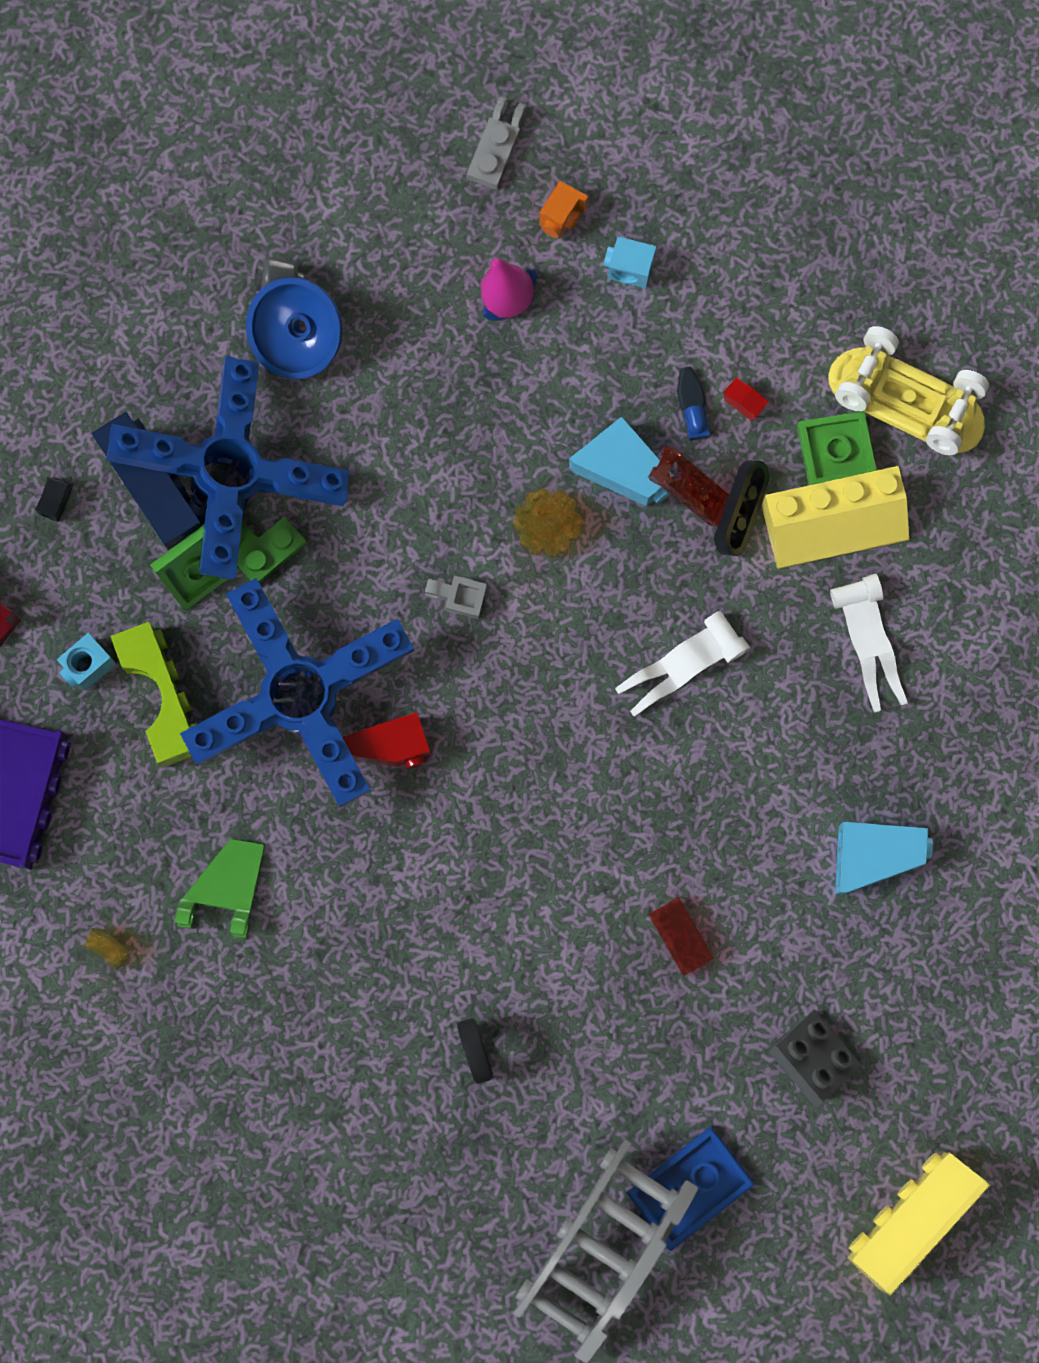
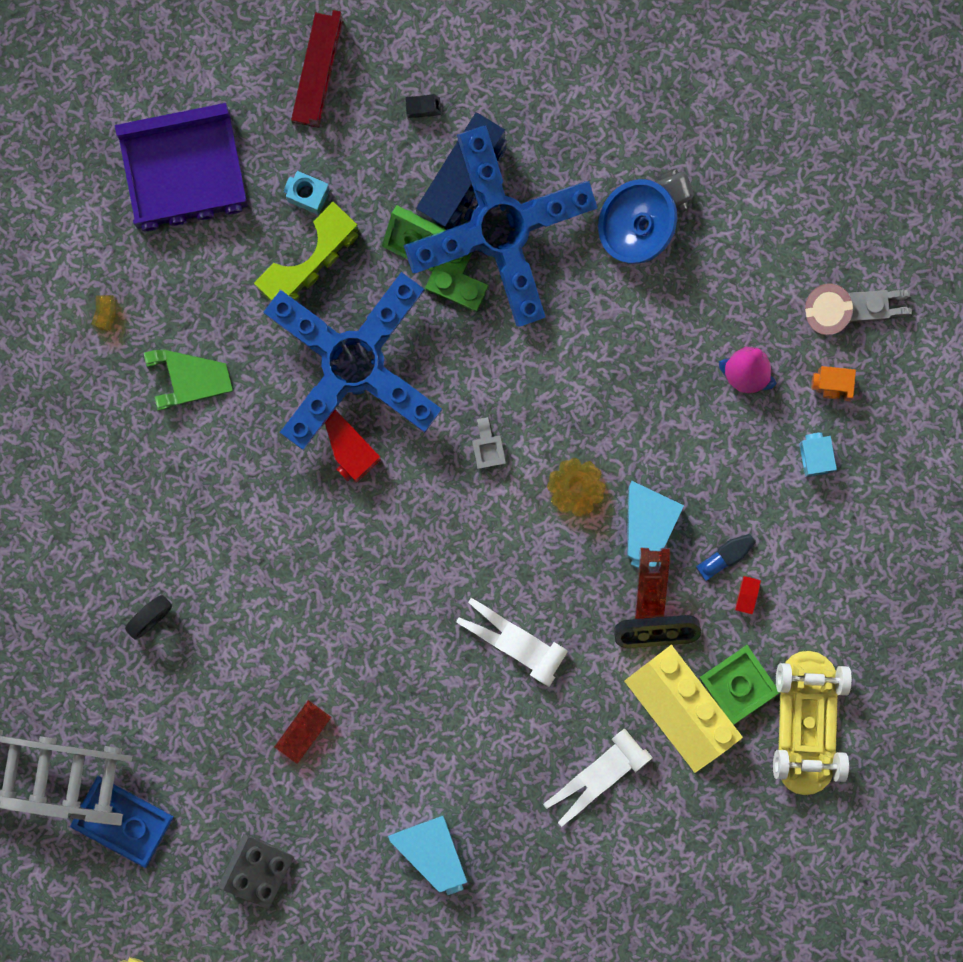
camera: 70 degrees right, 5 degrees up
(481, 182) = (829, 309): none -> sticker

